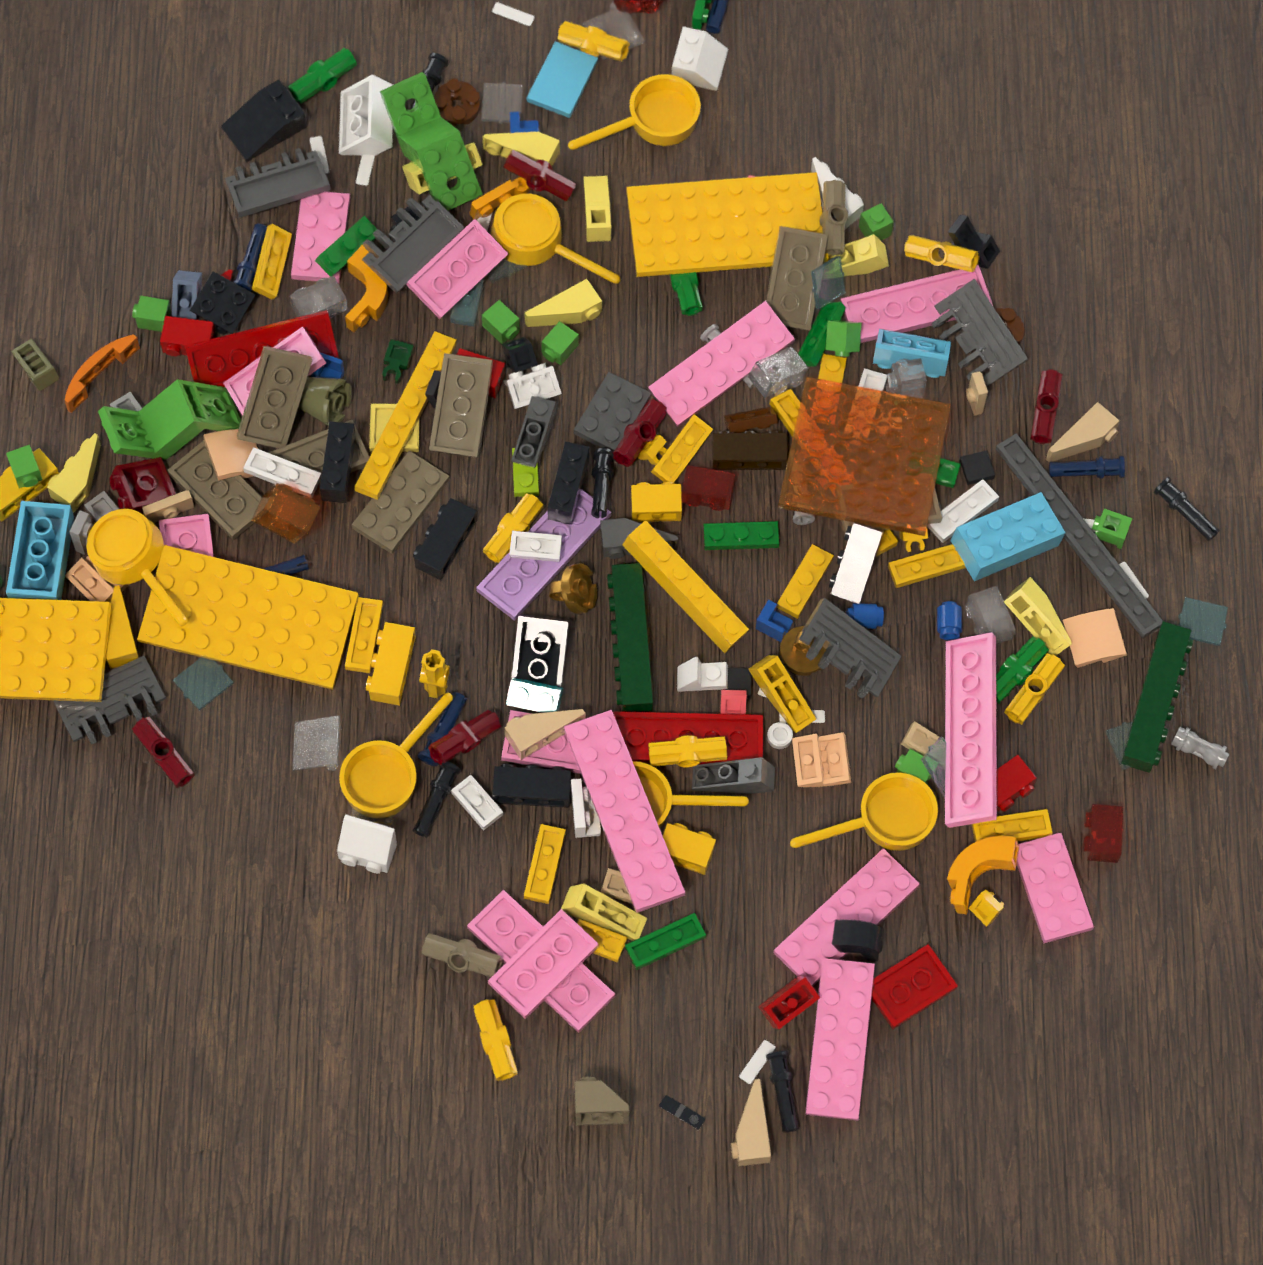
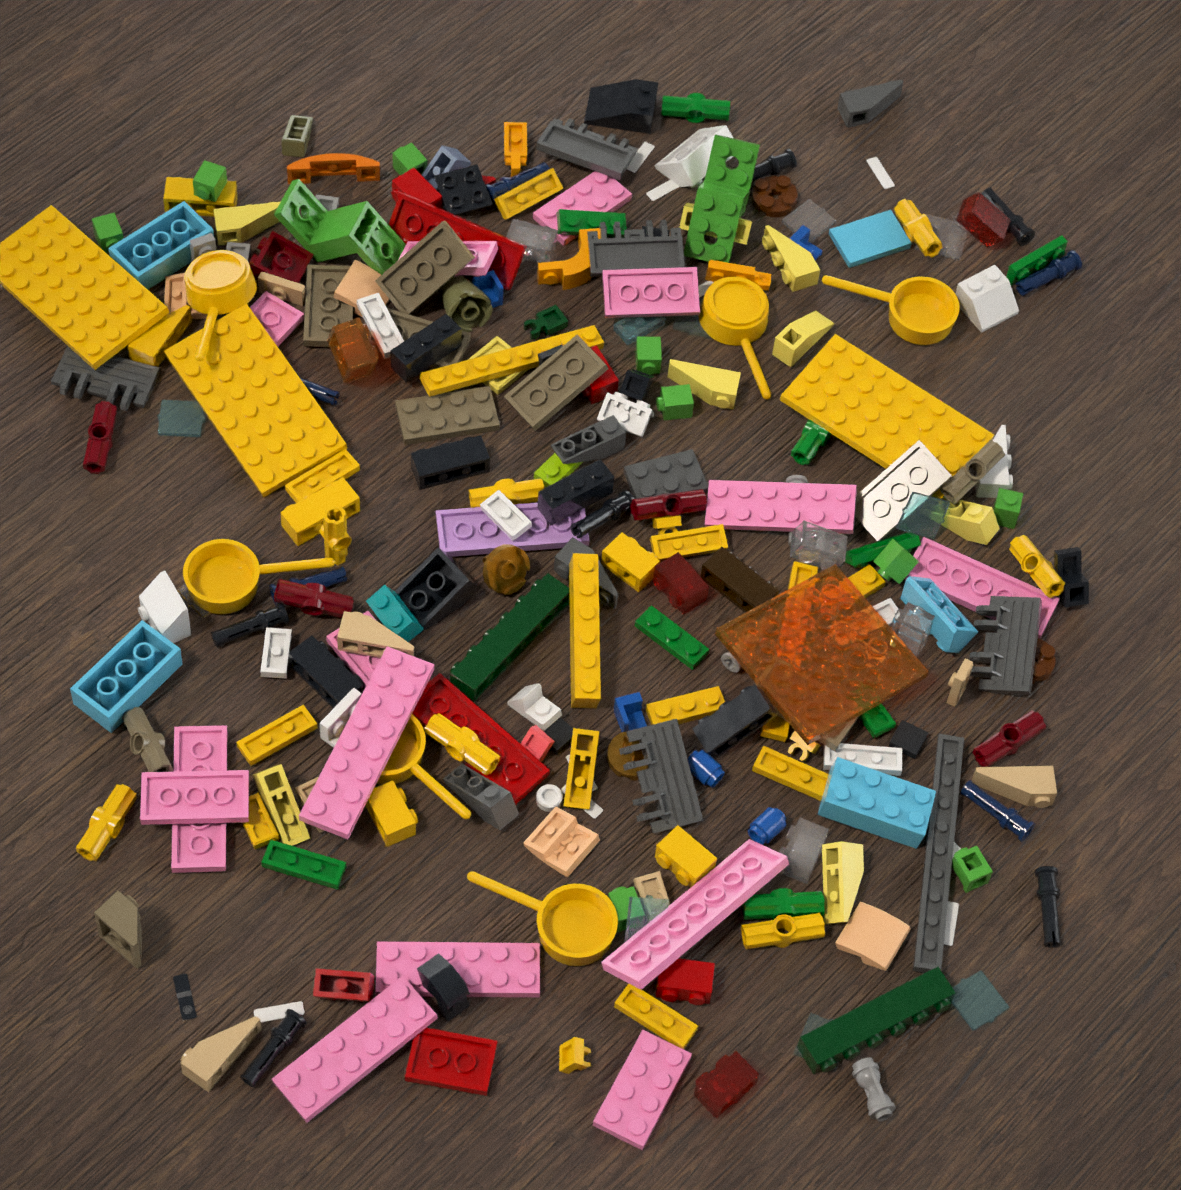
camera: 40 degrees right, 10 degrees down
(218, 228) = (515, 145): none -> light orange hinge
(317, 743) = (211, 520): clear hinge -> none
(393, 919) = (126, 676): none -> medium azure brick
(539, 175) = (780, 281): dark red piece -> none
(759, 418) = (773, 569): reddish brown plate -> none
(918, 695) = (684, 857): none -> yellow brick
(979, 857) = (596, 1013): light orange arch -> none

